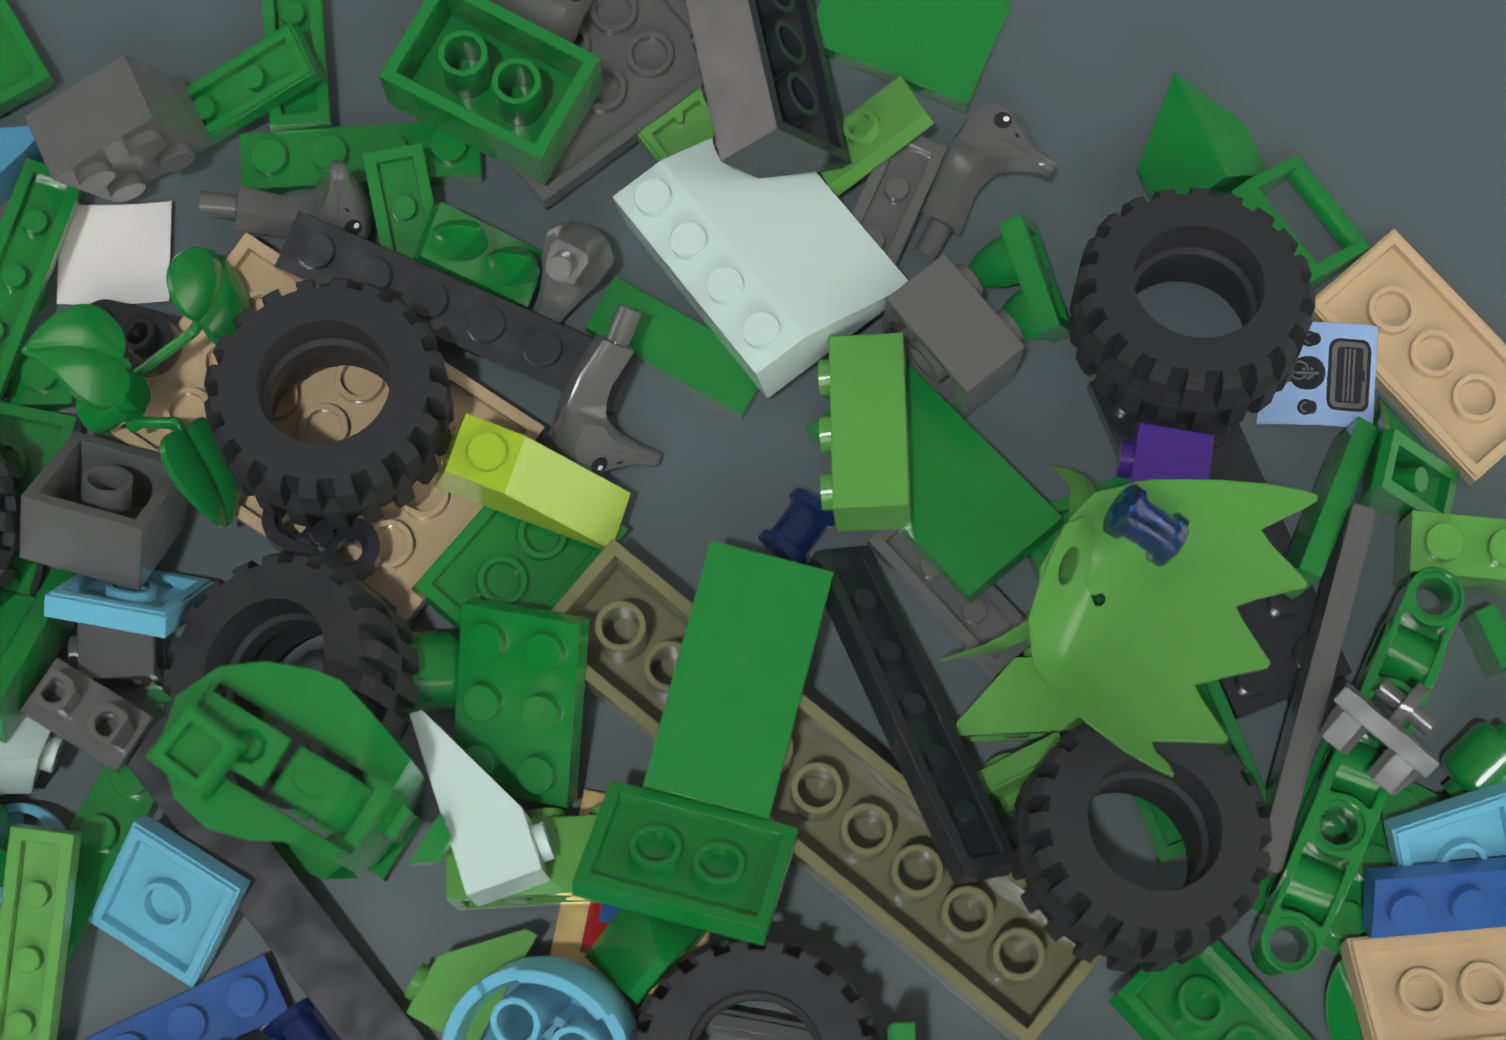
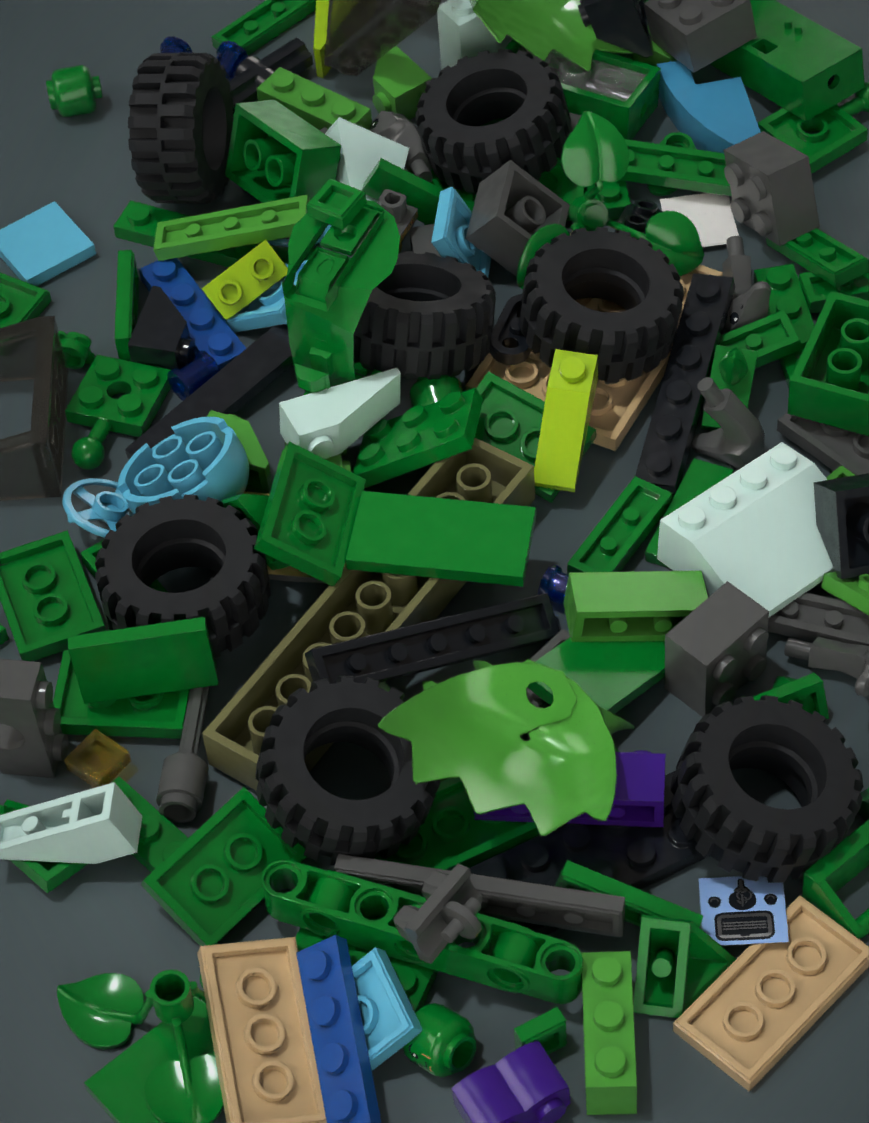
camera: 90 degrees right, 25 degrees down
(132, 949) = (245, 280): none -> lime bracket
(580, 419) = (615, 458): dark grey animal -> none
(706, 444) = (622, 529): none -> green plate
(1146, 525) = (576, 737): bush -> none

